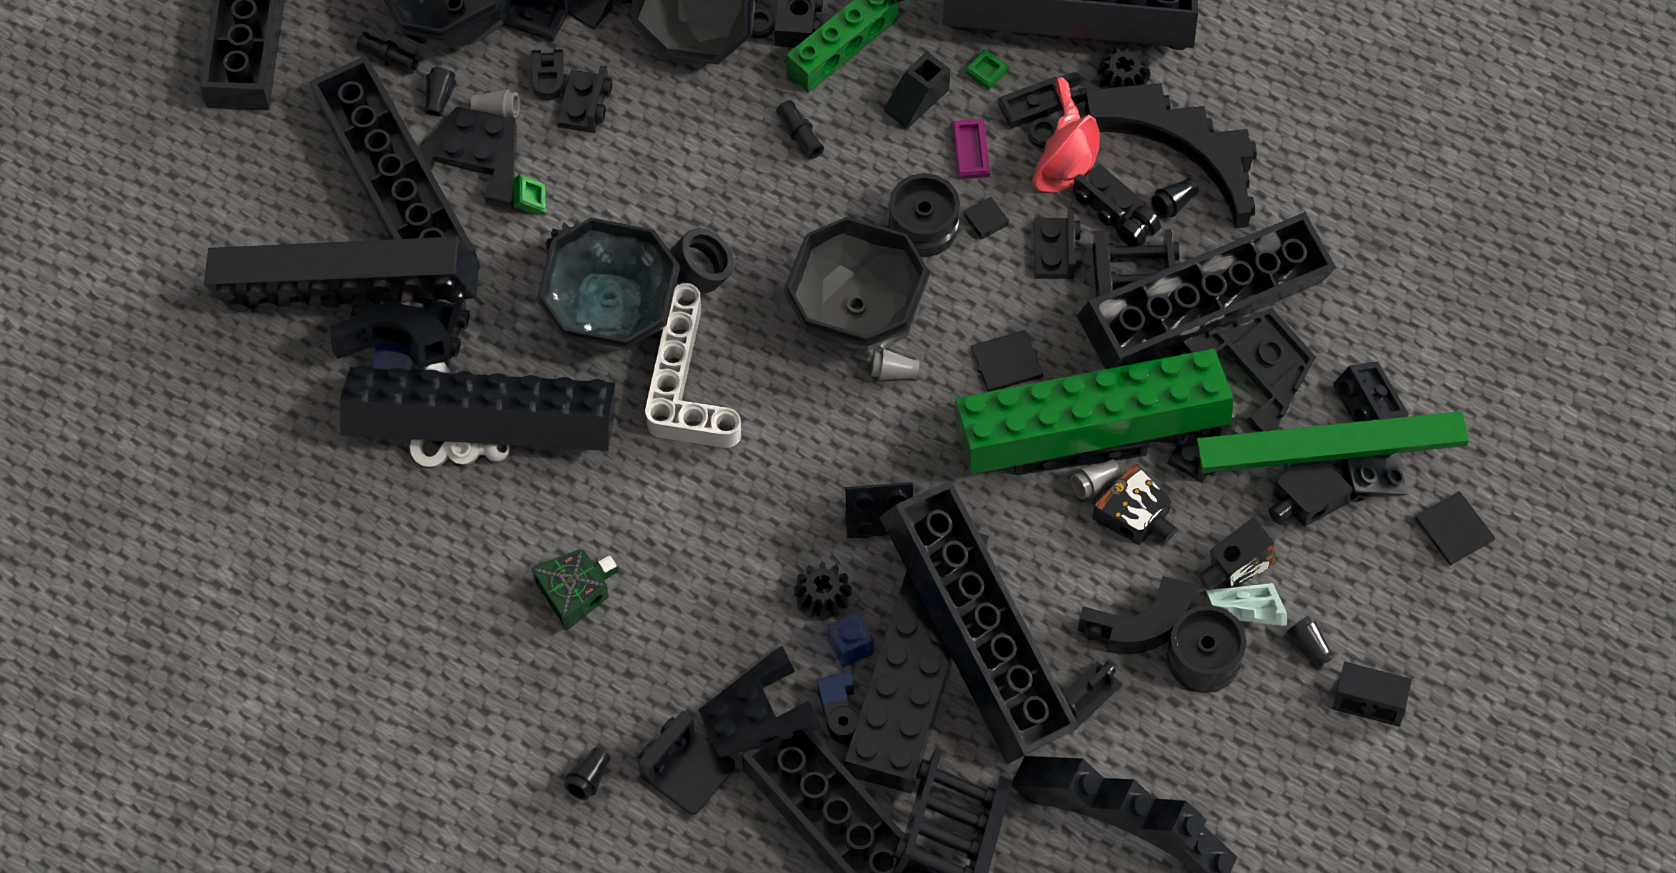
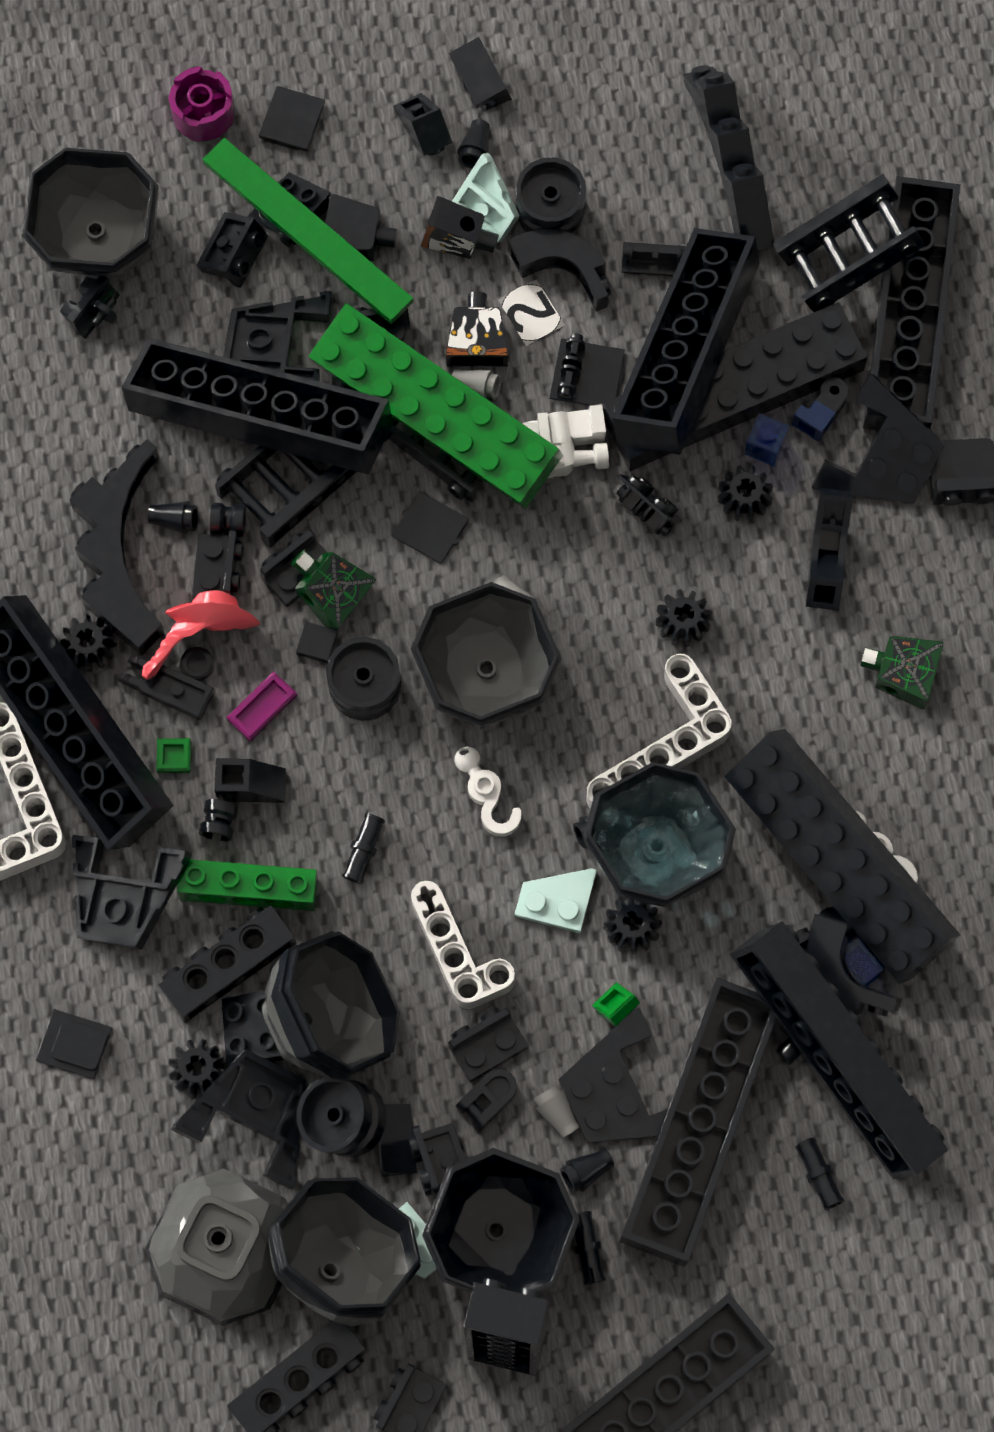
camera: 130 degrees left, 10 degrees up
(284, 226) = (819, 1173): none -> black pin
(646, 210) = (557, 900): none -> light aqua wing
(712, 602) = (828, 549): none -> black arch
(714, 248) = (547, 794): black tyre -> none
(719, 141) = (454, 944): none -> white beam
(765, 477) = (691, 626): none -> black gear
(766, 236) = (485, 790): none -> white piece
(906, 50) = (218, 819): none -> black wheel
(996, 496) = (574, 429): none -> white hips
(1017, 247) = (331, 586): none -> torso
(1032, 565) = (586, 372): none -> black hinge
(1123, 571) = (531, 312): none -> white sticker
(1363, 614) = (424, 124): none -> black slope
(1401, 264) = (93, 308): none -> black hips
(1480, 276) = (89, 192): none -> dark grey rock
(1521, 463) = (201, 104): none -> magenta brick

